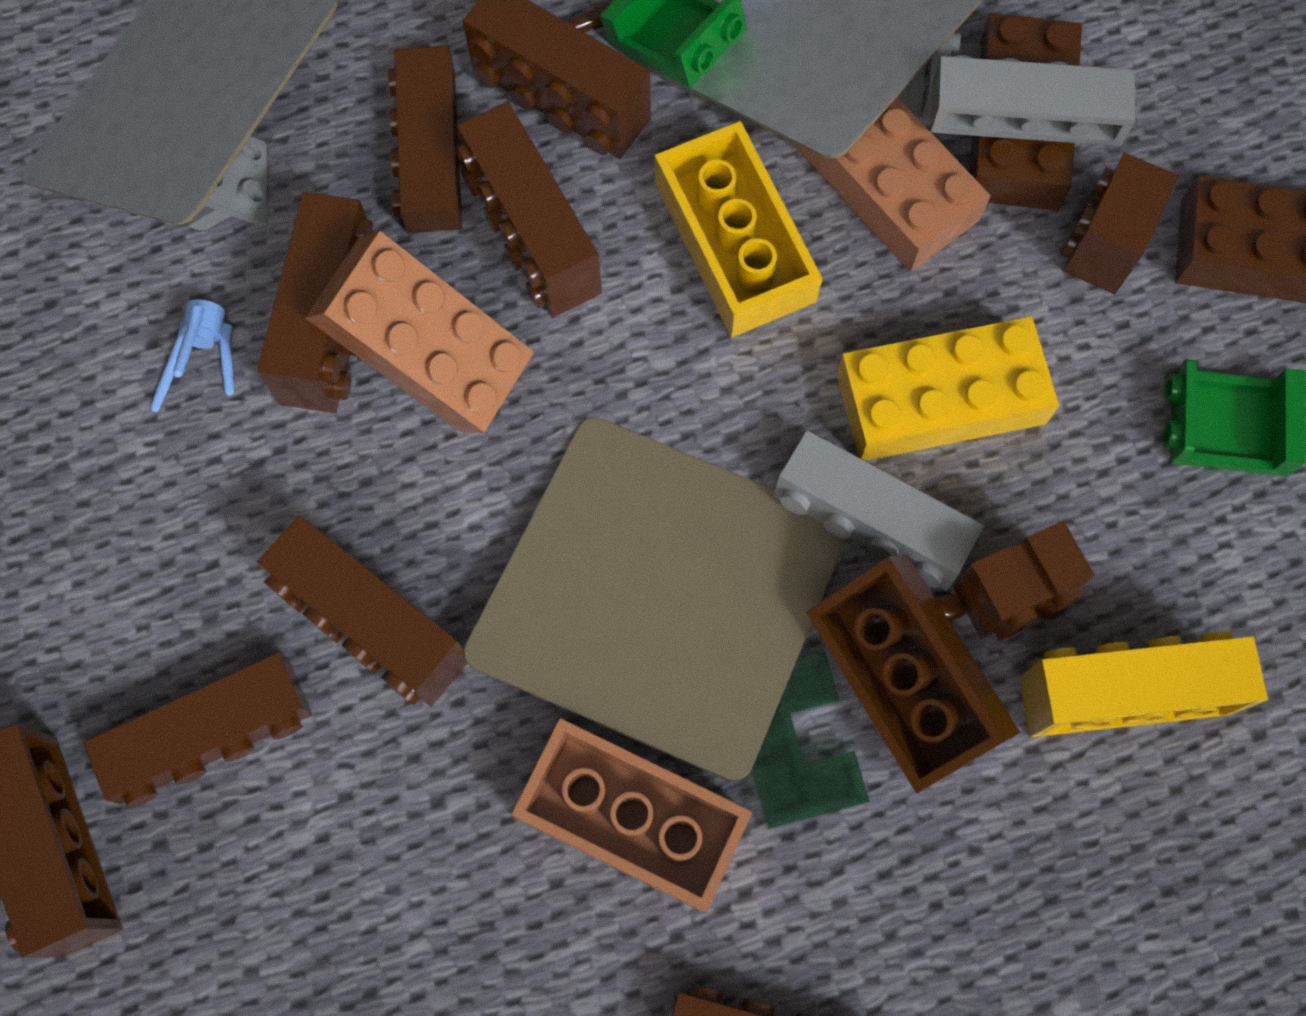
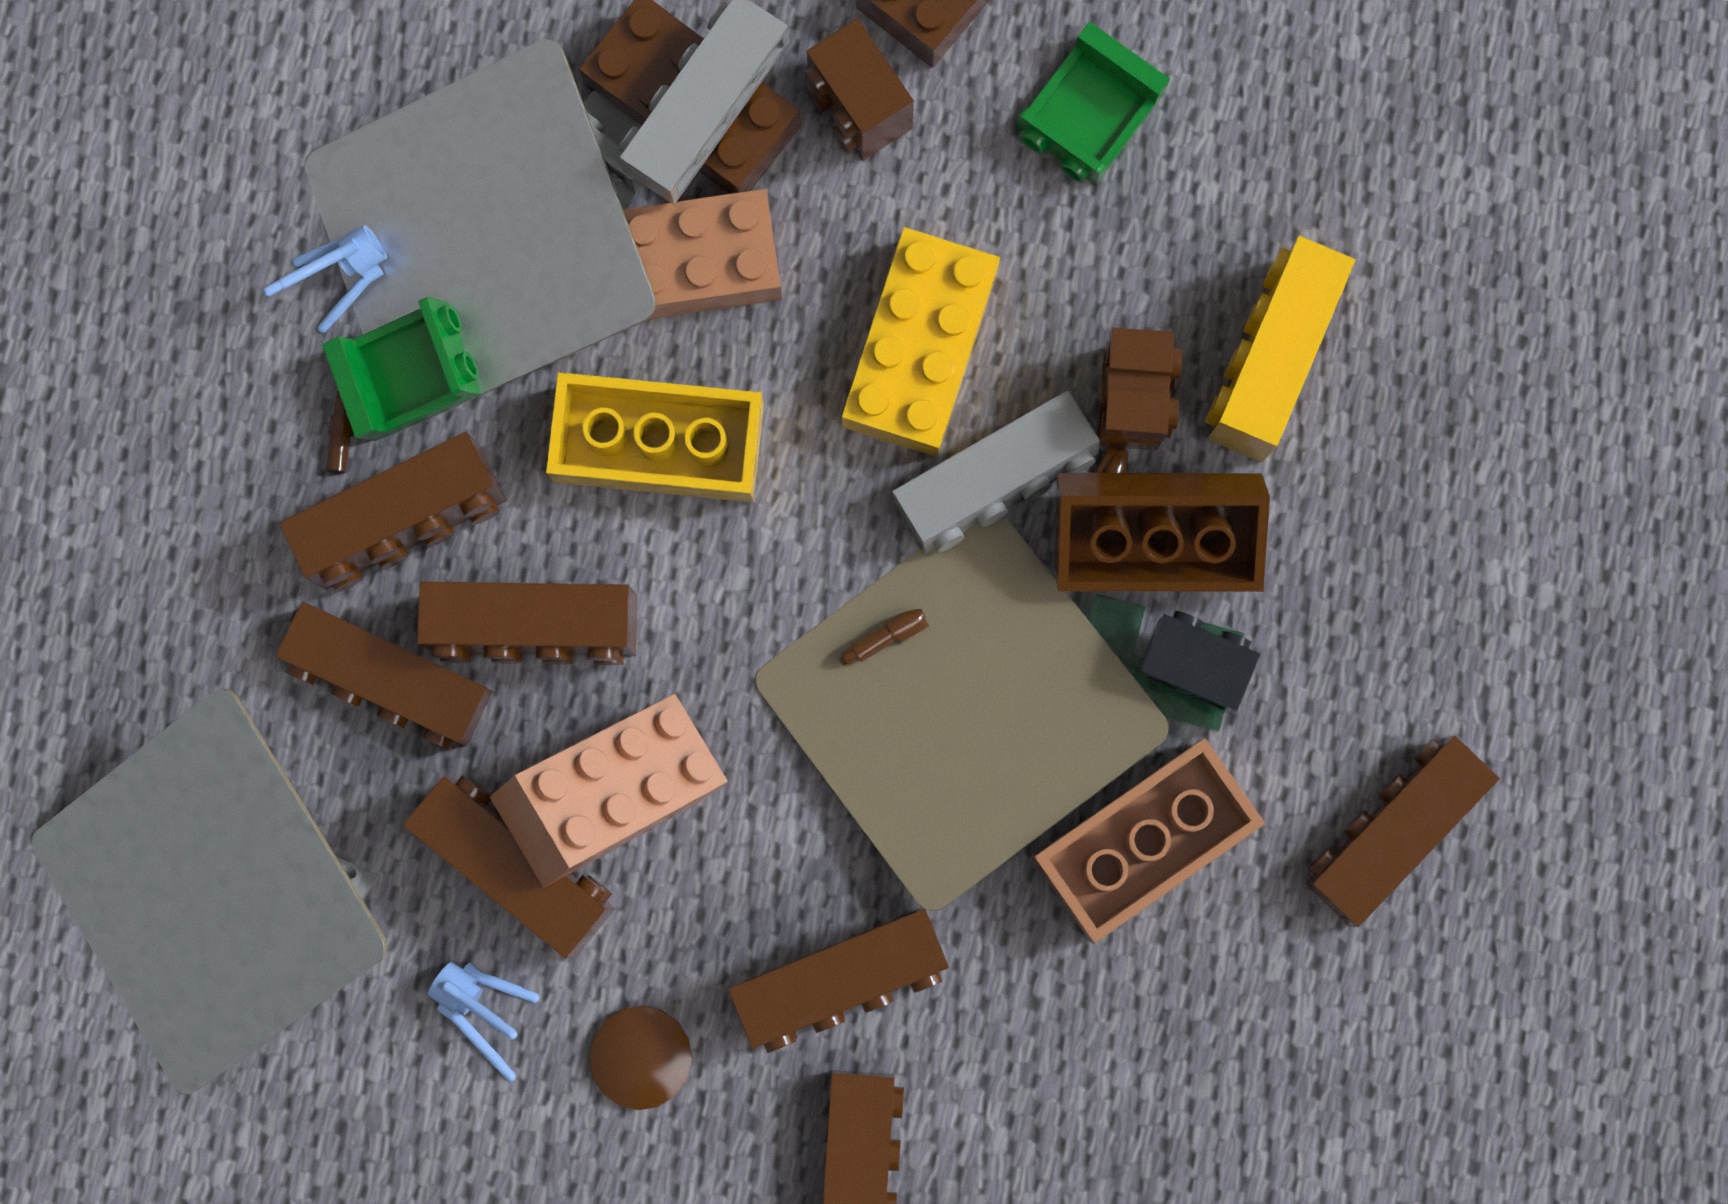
camera: 60 degrees left, 10 degrees up
(220, 498) = (640, 1057): none -> reddish brown dish
(693, 503) = (894, 630): none -> reddish brown piece
(818, 770) = (1199, 662): none -> black brick

